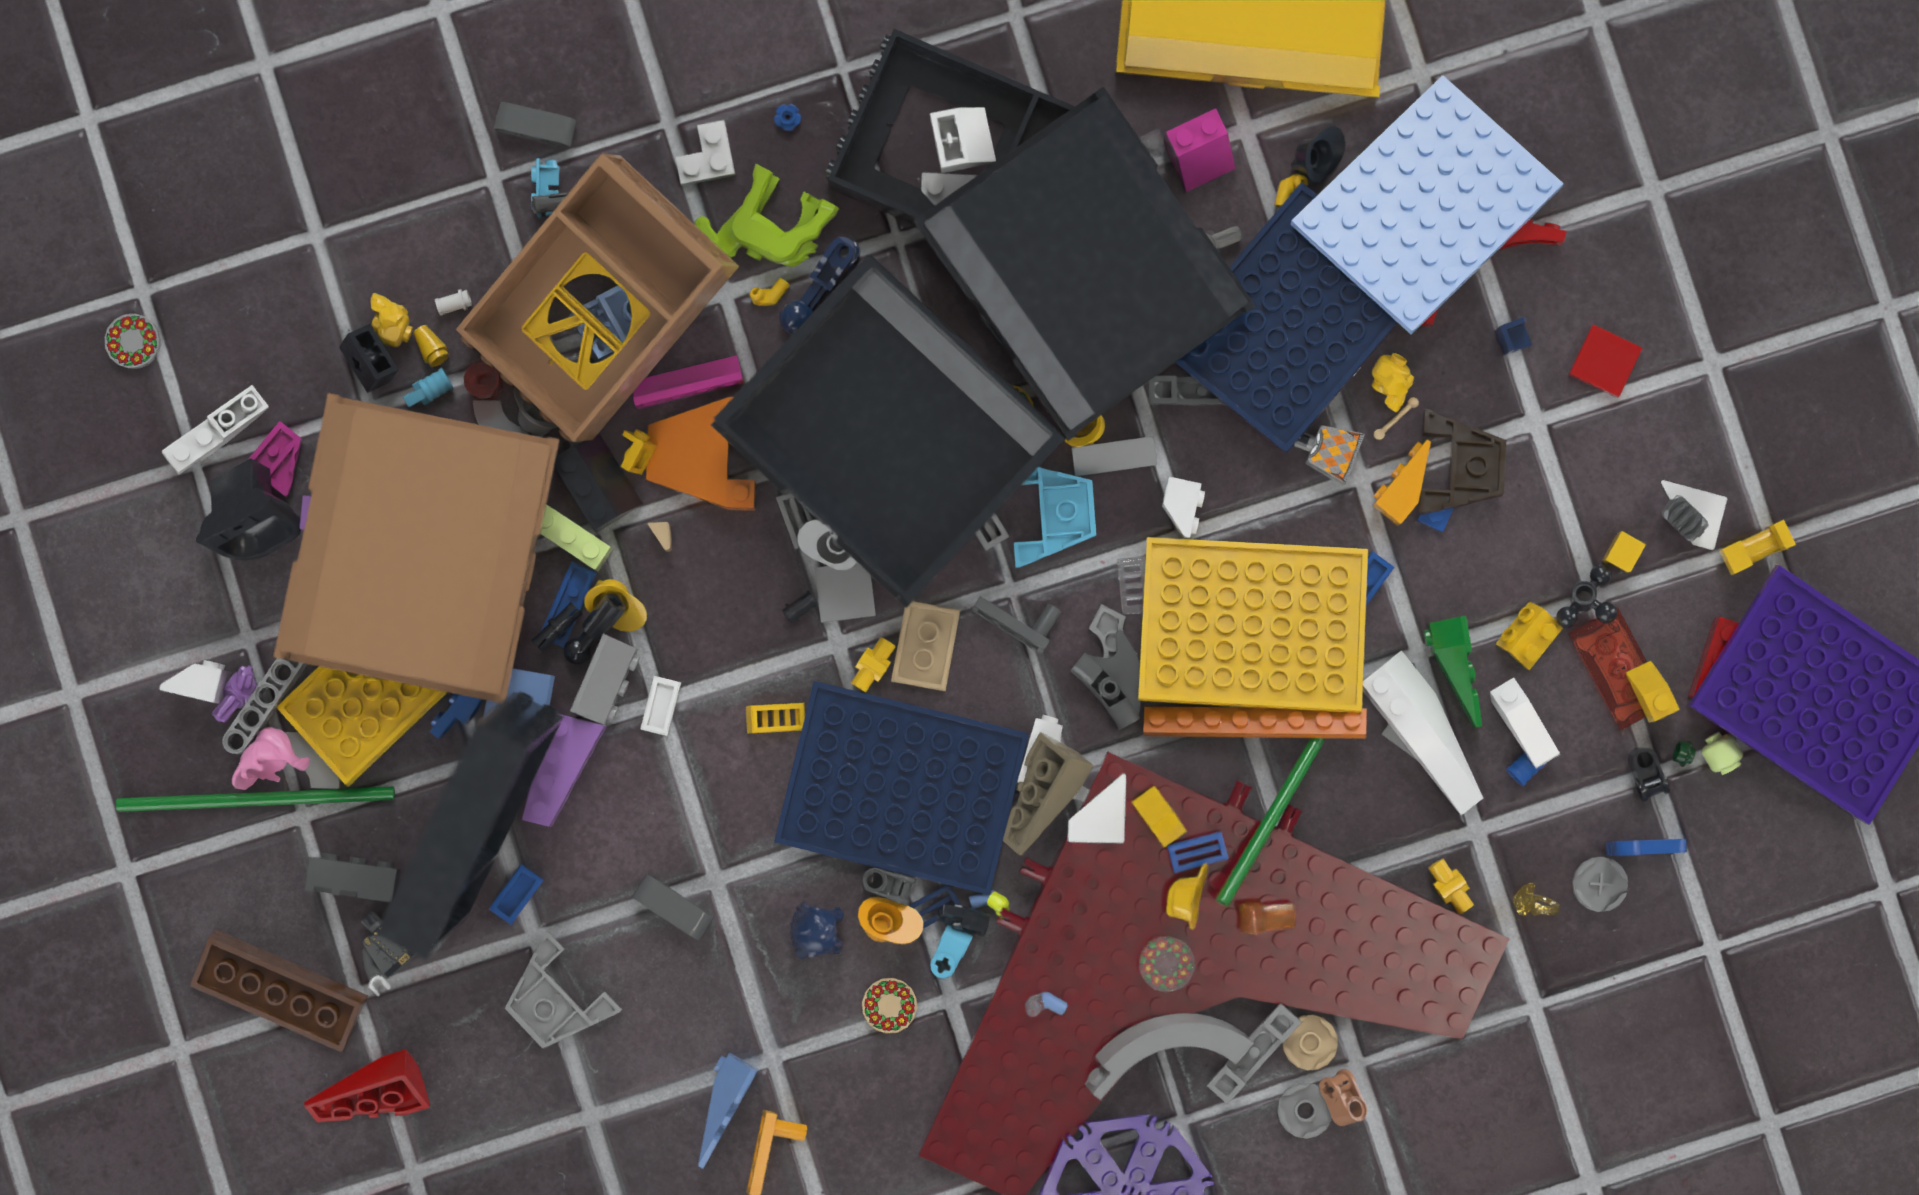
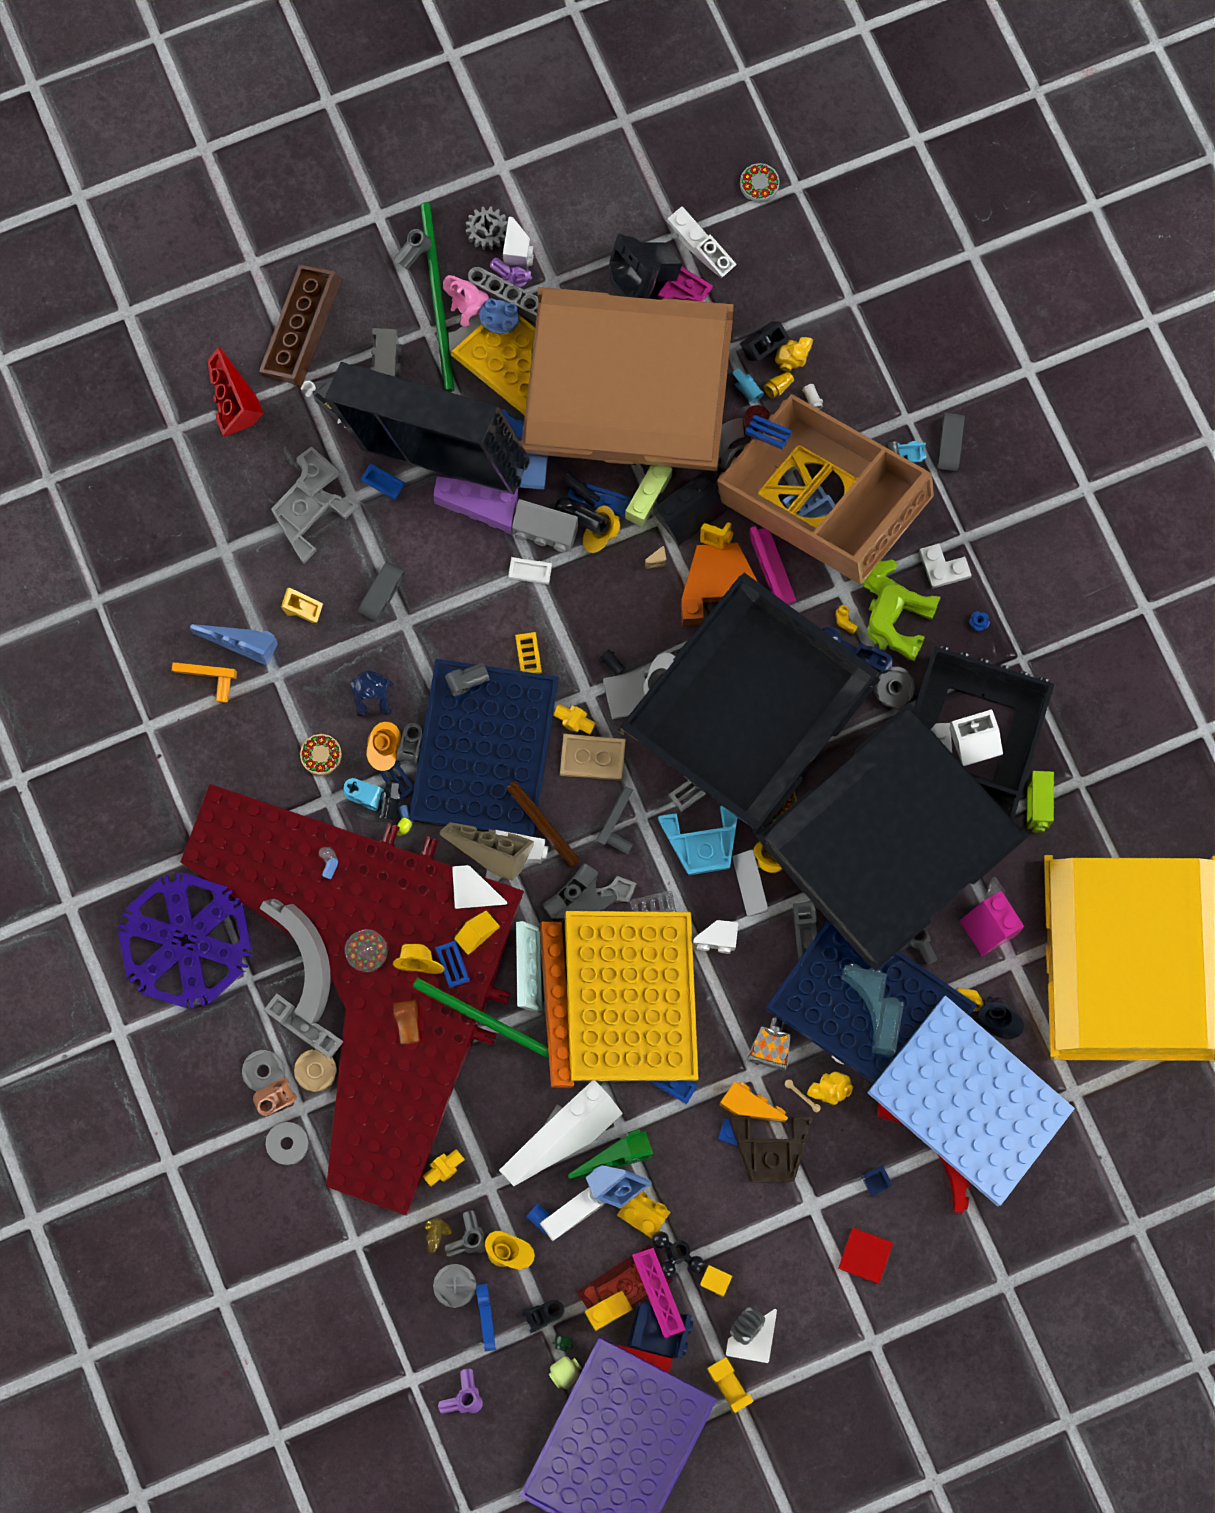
camera: 85 degrees right, 10 degrees down
(163, 733) = (494, 223): none -> light grey gear
(187, 829) = (412, 249): none -> dark grey piece
(298, 715) = (499, 316): none -> medium blue dish
(490, 380) = (770, 429): none -> blue tile
(495, 983) = (316, 472): none -> light grey tile
(684, 1015) = (301, 605): none -> yellow slope
(809, 808) = (462, 680): none -> dark grey piece
(877, 227) = (905, 690): none -> light grey tile
(1013, 719) = (543, 824): none -> reddish brown axle
(1044, 67) = (1040, 801): none -> lime window
(1204, 753) = (529, 967): none -> light aqua tile
(1309, 300) = (885, 1013): none -> clear light blue arch
(1417, 1091) = (283, 1131): none -> light grey tile
(1499, 667) = (615, 1185): none -> medium blue slope
(1550, 865) = (466, 1243): none -> dark grey axle
(1566, 810) = (508, 1250): none -> yellow piece
(1637, 625) = (659, 1293): none -> dark pink fence
(1679, 628) = (648, 1335): none -> dark blue panel
(1748, 889) = (460, 1402): none -> medium lavender axle

